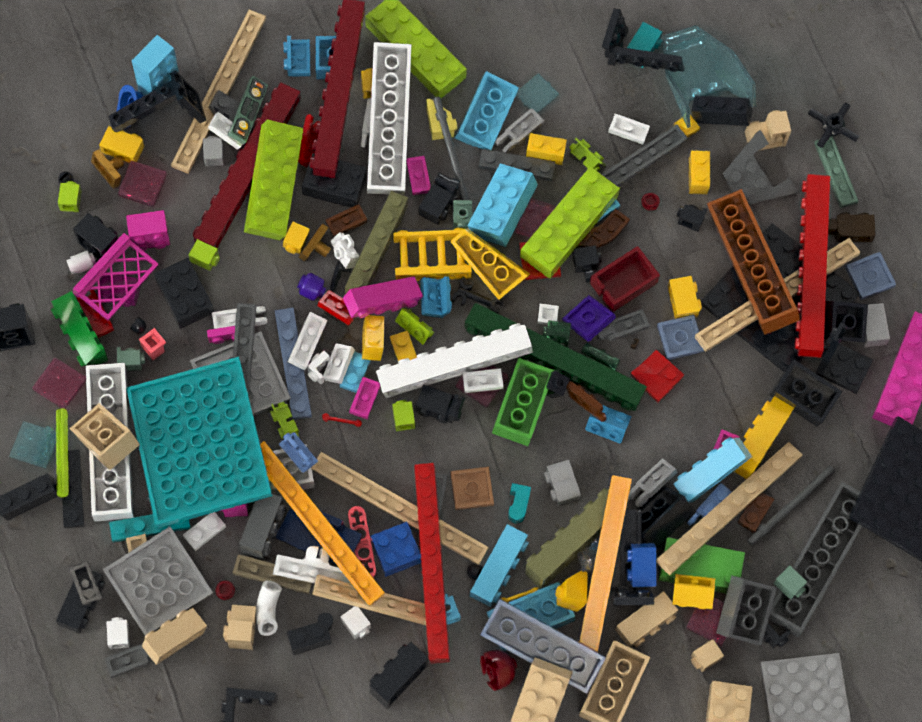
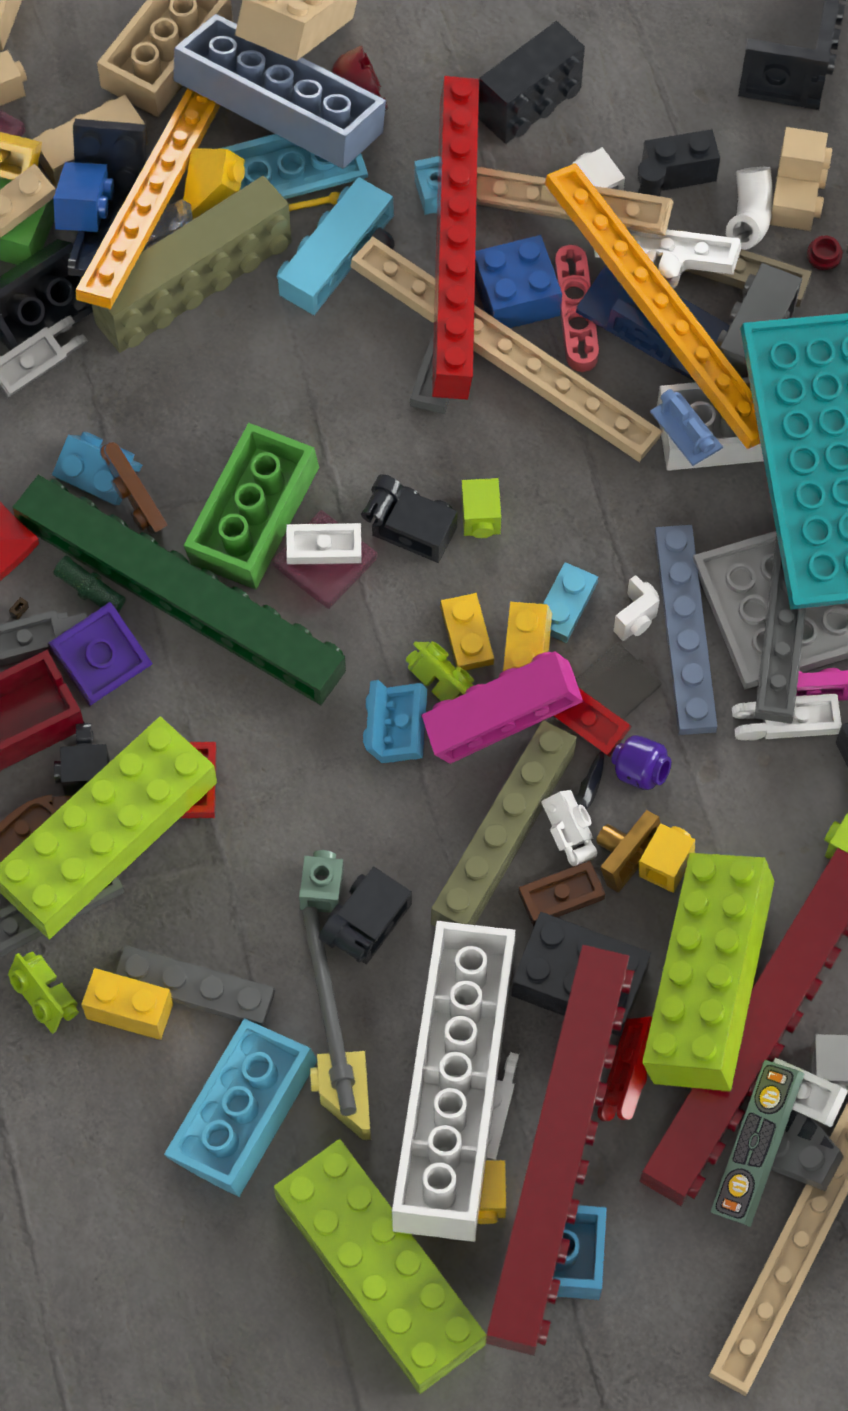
camera: 170 degrees left, 5 degrees down
(281, 414) = (706, 502): lime hinge -> none
(297, 57) = (642, 1268): dark azure bracket -> none
(307, 341) = (656, 651): white plate -> none
(326, 417) = (626, 528): red hinge -> none
(338, 363) = (597, 613): white plate -> none
(365, 398) = (550, 548): dark pink plate -> none
(418, 175) = (403, 976): dark pink plate -> none
(454, 361) = (373, 567): white brick -> none
(456, 271) = (376, 772): yellow fence -> none
(464, 291) = (334, 736): black bar -> none
(472, 488) = (367, 382): medium nougat tile -> none
(491, 265) = (280, 758): yellow wedge -> none
(503, 204) = (236, 885): medium azure brick -> none
(518, 508) = (281, 345): teal leg -> none
(520, 129) = (174, 1058): light grey hinge -> none
(533, 217) = (175, 872): clear pink plate -> none
(537, 93) = (126, 1144): clear light blue piece -> none
(546, 313) = (178, 671): white plate -> none
(556, 385) = (180, 525): black bracket -> none
(557, 332) = (165, 633): clear green brick -> none
(562, 482) = (200, 369): light grey brick -> none

